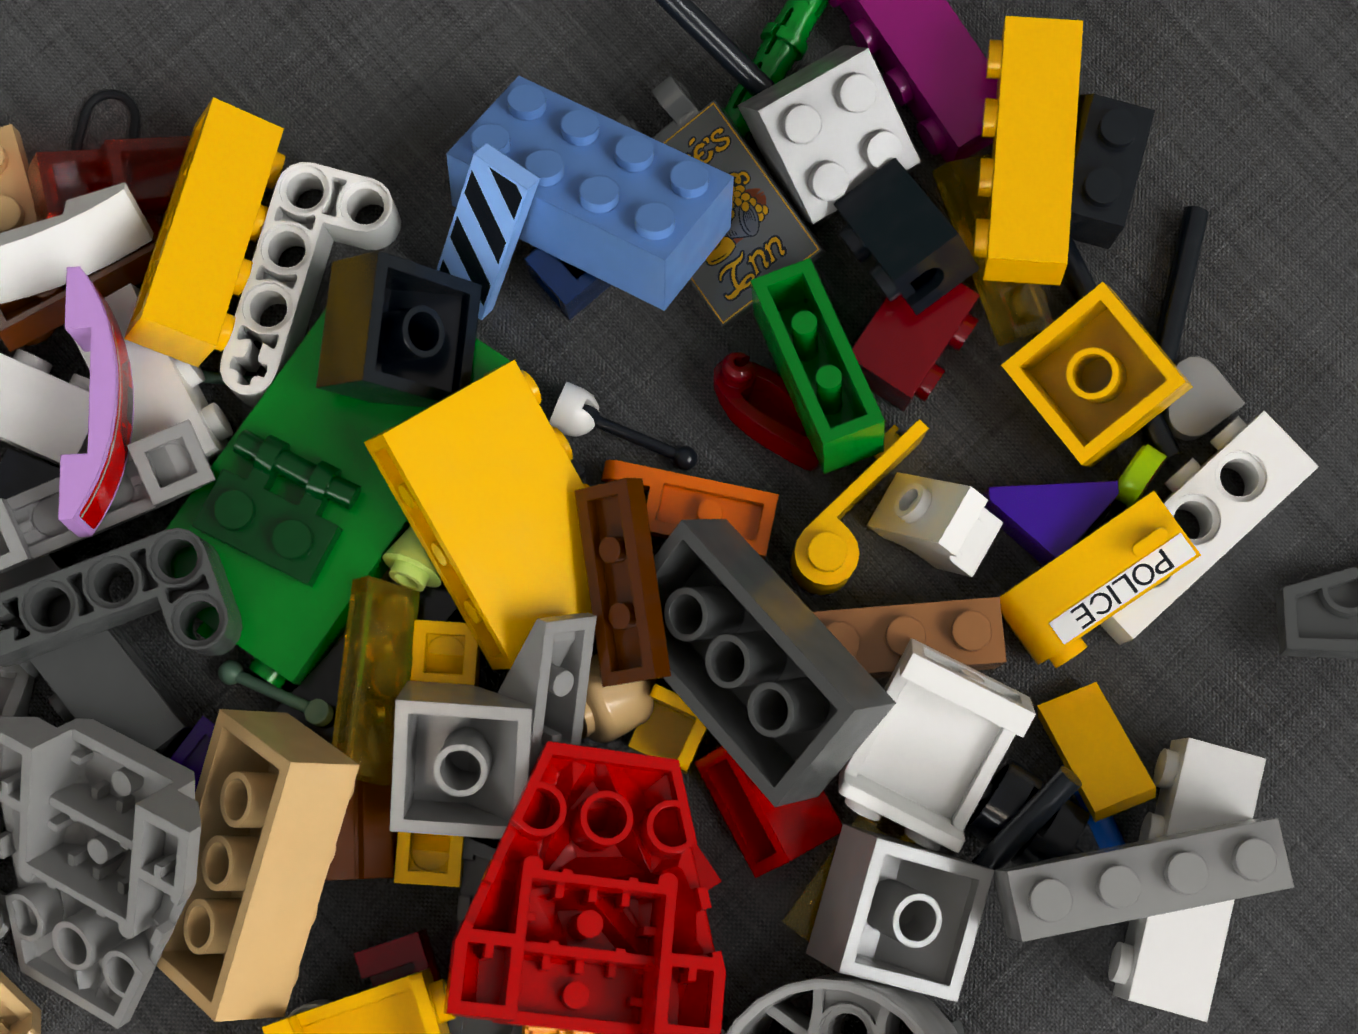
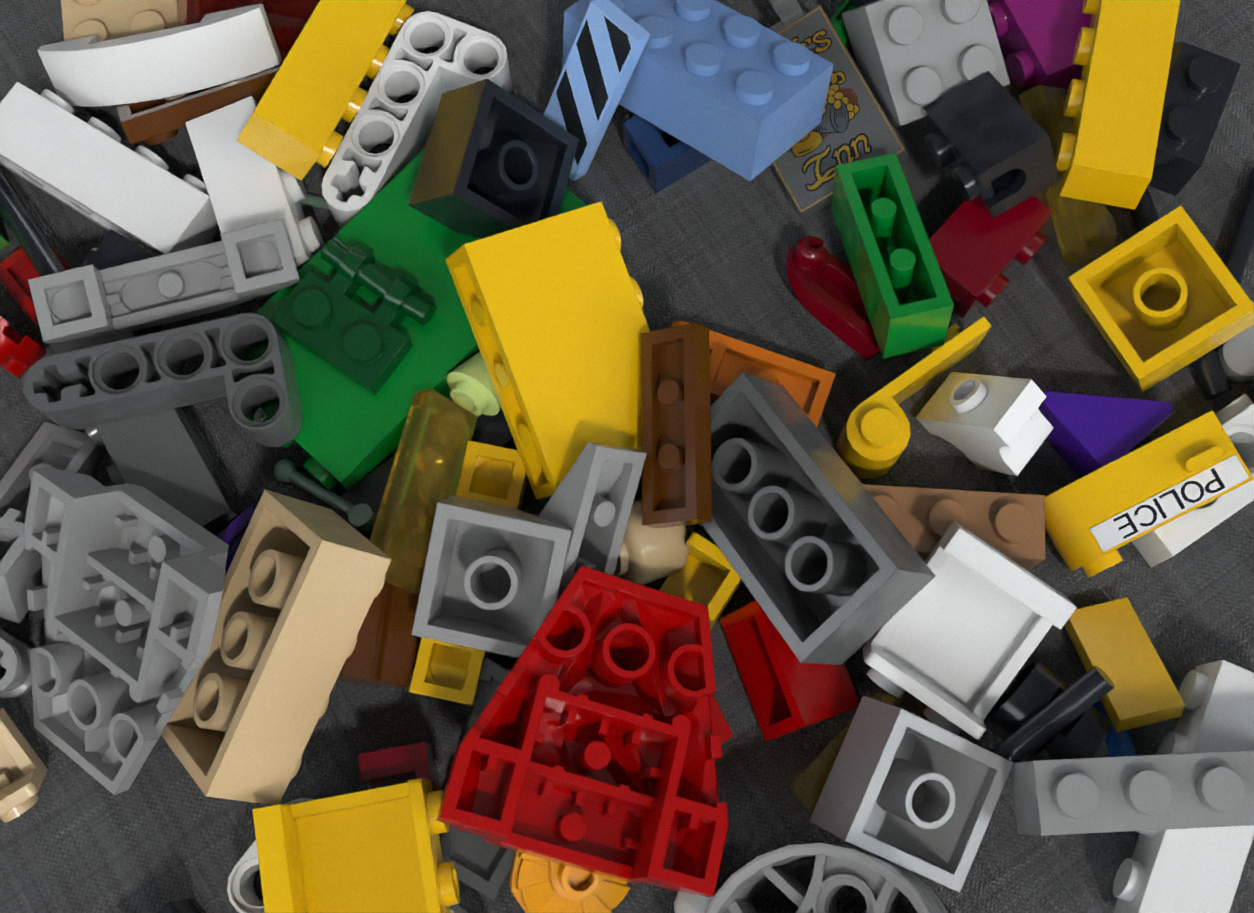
camera: 10 degrees right, 5 degrees down
(92, 478) = (184, 256): lavender slope -> none
(579, 413) = (655, 276): hinge -> none
(1139, 474) = (1190, 402): lime tile -> none

